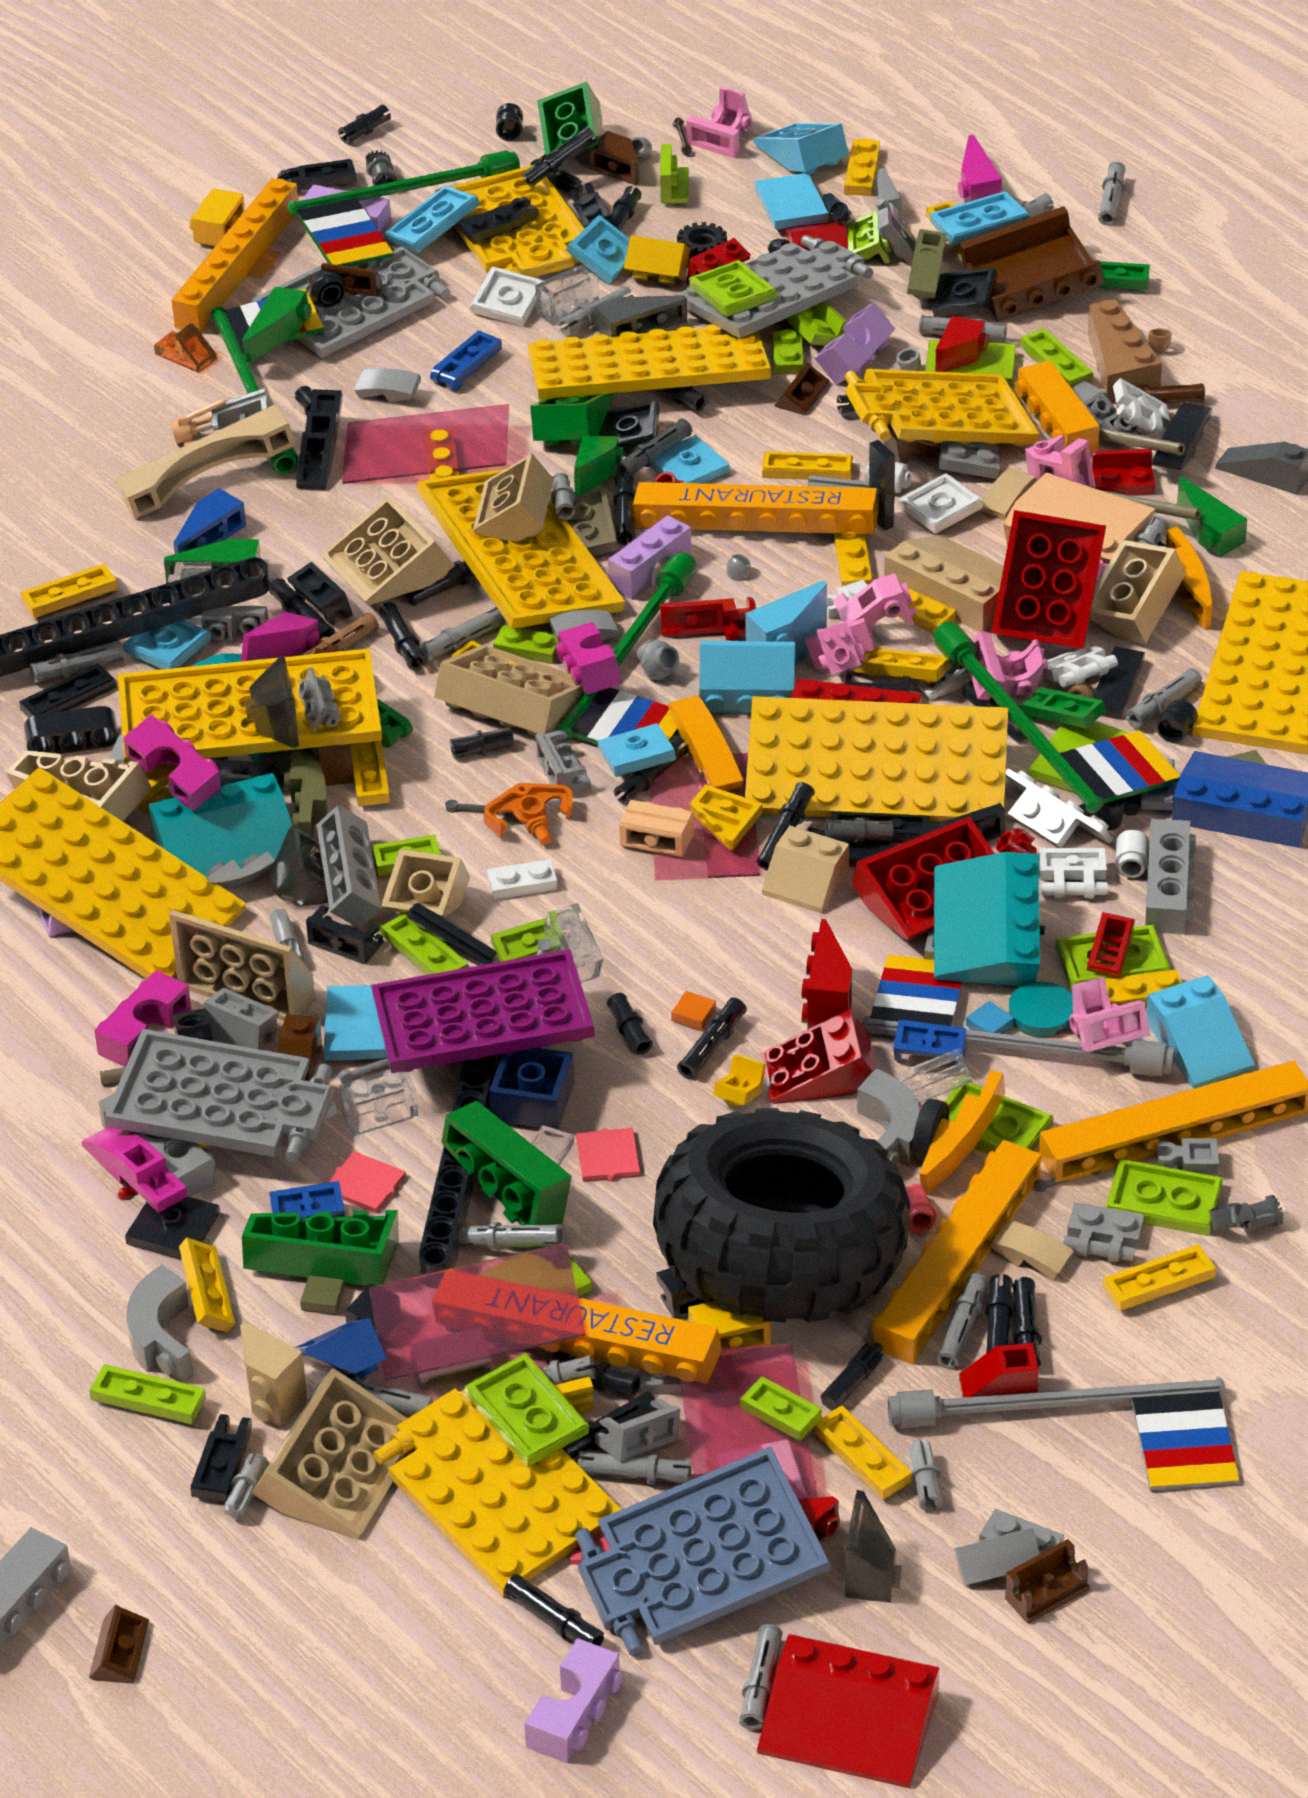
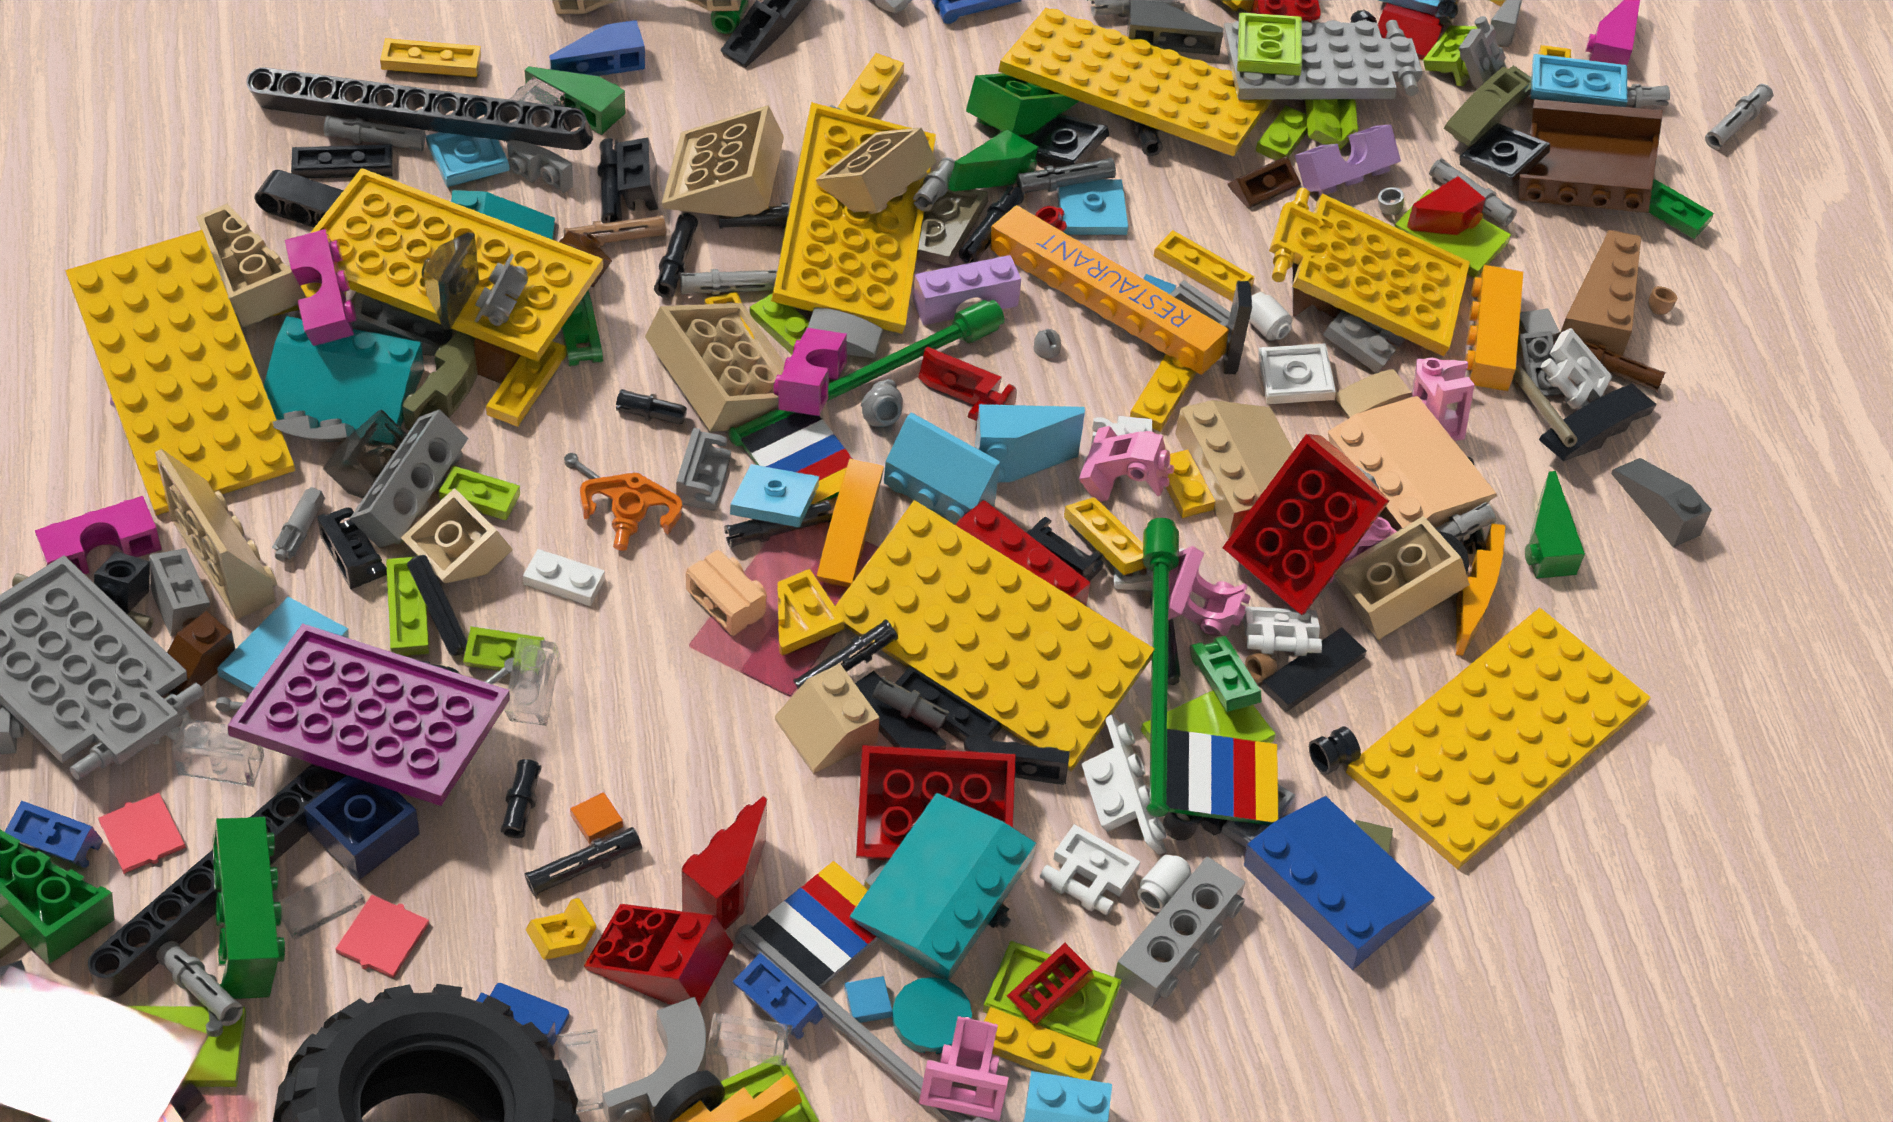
camera: 25 degrees right, 10 degrees up
(280, 637) = (551, 203): dark pink slope -> none
(404, 445) = (839, 52): clear pink piece -> none
(840, 647) = (1044, 491): bright pink tile -> none
(1017, 842) = (1050, 812): red gear -> none
(1045, 347) = (1540, 270): lime plate -> none
(1124, 471) = (1505, 433): red bracket -> none
(1156, 703) = (1330, 716): light grey pin -> none
(1164, 507) = (1500, 485): dark tan piece -> none

